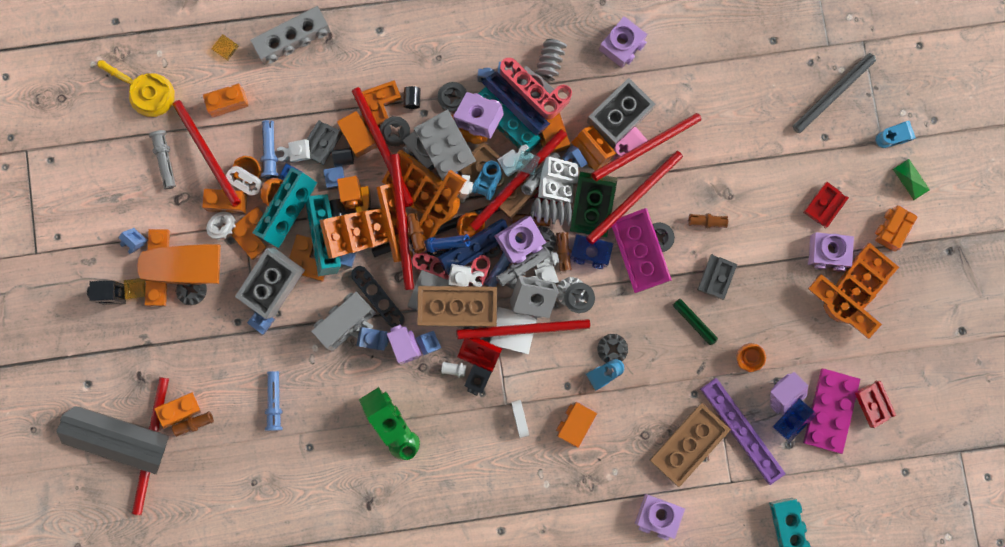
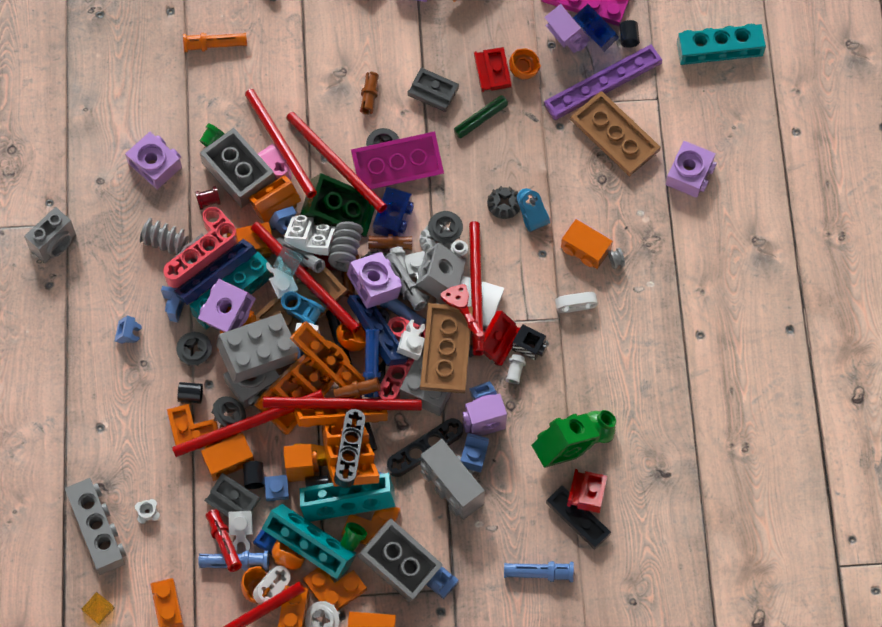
camera: 80 degrees left, 15 degrees down
(290, 134) = (215, 520): none -> red pin
(291, 243) = (353, 535): none -> green piece
(307, 80) = (145, 505): none -> white plate
(322, 431) = (580, 520): none -> black plate
(343, 438) = (587, 491): none -> red plate
(354, 230) = (349, 448): none -> black beam
(463, 37) = (125, 330): none -> medium blue tile
(496, 316) = (461, 304): none -> piece
(558, 307) = (460, 248): none -> white pin
(565, 452) = (616, 258): none -> light grey bush
(592, 92) = (208, 197): none -> dark red bush
(651, 88) = (210, 135): none -> green piece
(742, 71) = (204, 41): none -> orange pin
(743, 329) = (492, 69): none -> red plate
(793, 452) = (629, 33): none -> black beam

